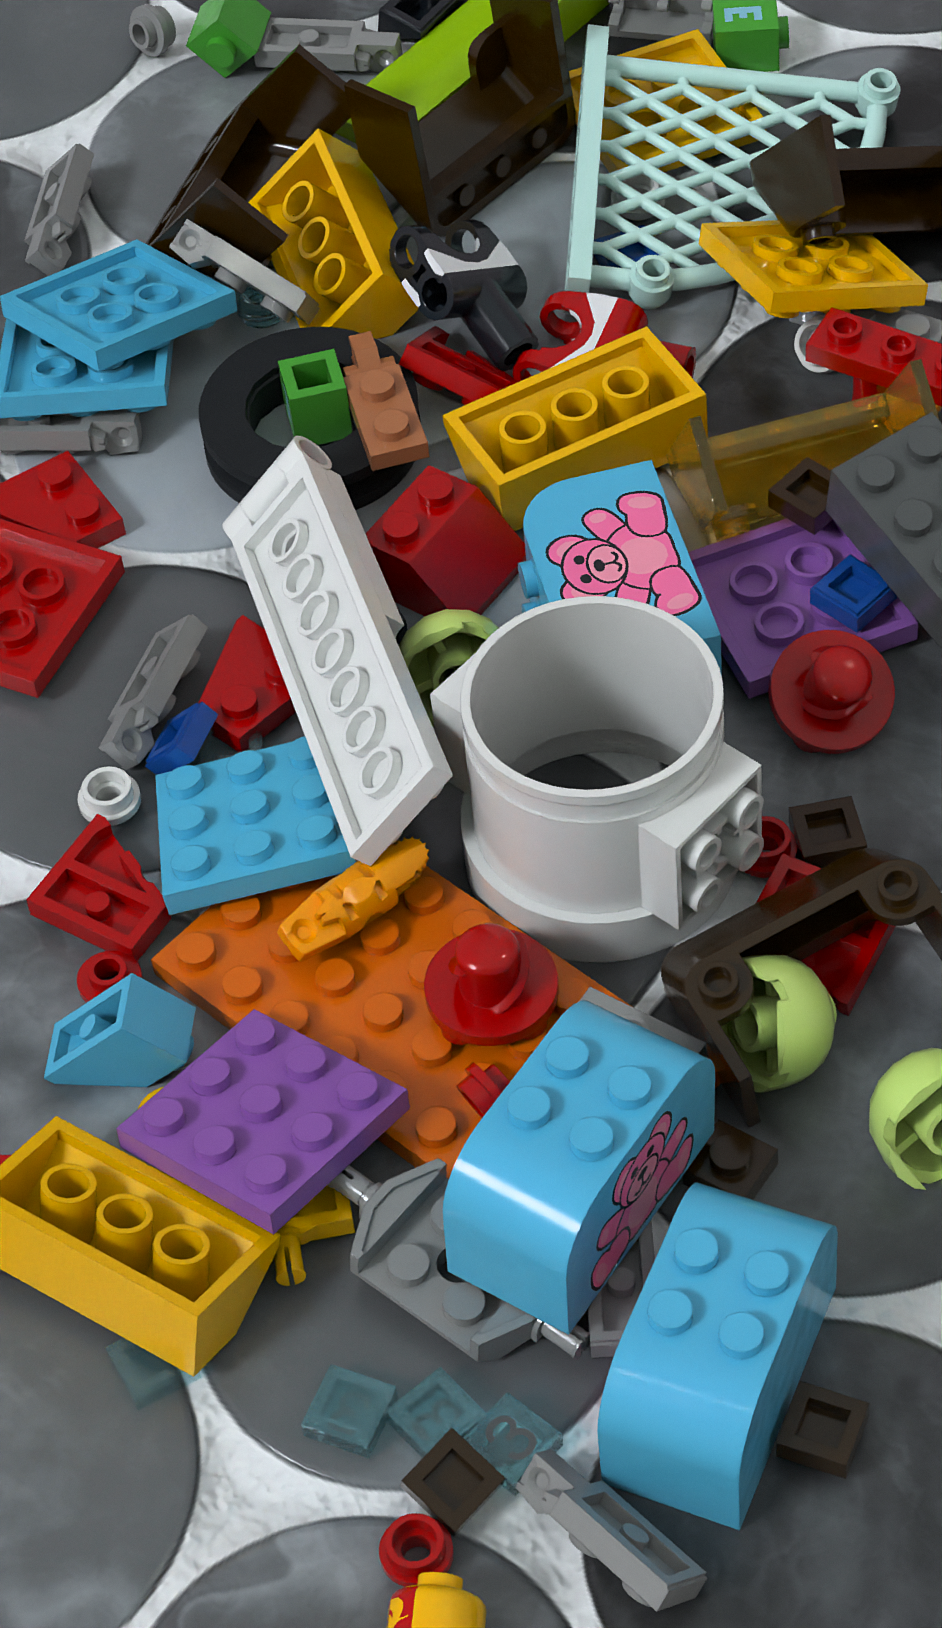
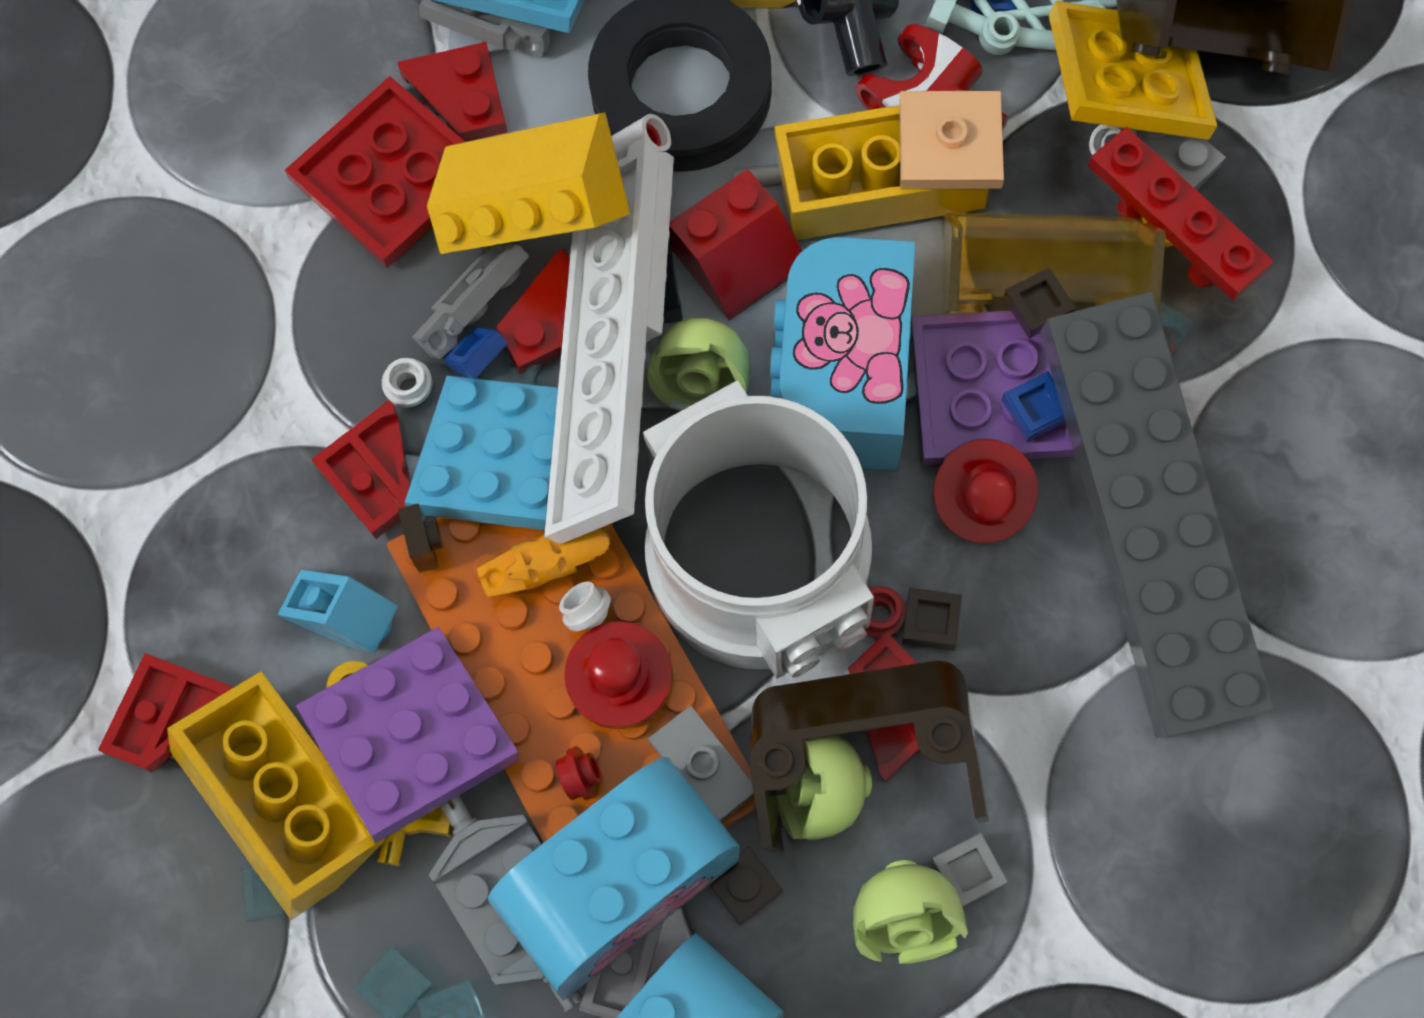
camera: 20 degrees right, 20 degrees up
(104, 965) = (357, 561): red plate -> none
(186, 538) = (527, 185): none -> yellow slope
(197, 921) = (421, 537): none -> dark brown plate
(315, 397) = (687, 64): bright green brick -> none
(382, 406) = (733, 97): nougat hinge -> none
(422, 929) = (584, 606): none -> white plate
(440, 366) = (812, 73): red wing -> none
(646, 367) = (951, 140): none -> light nougat plate

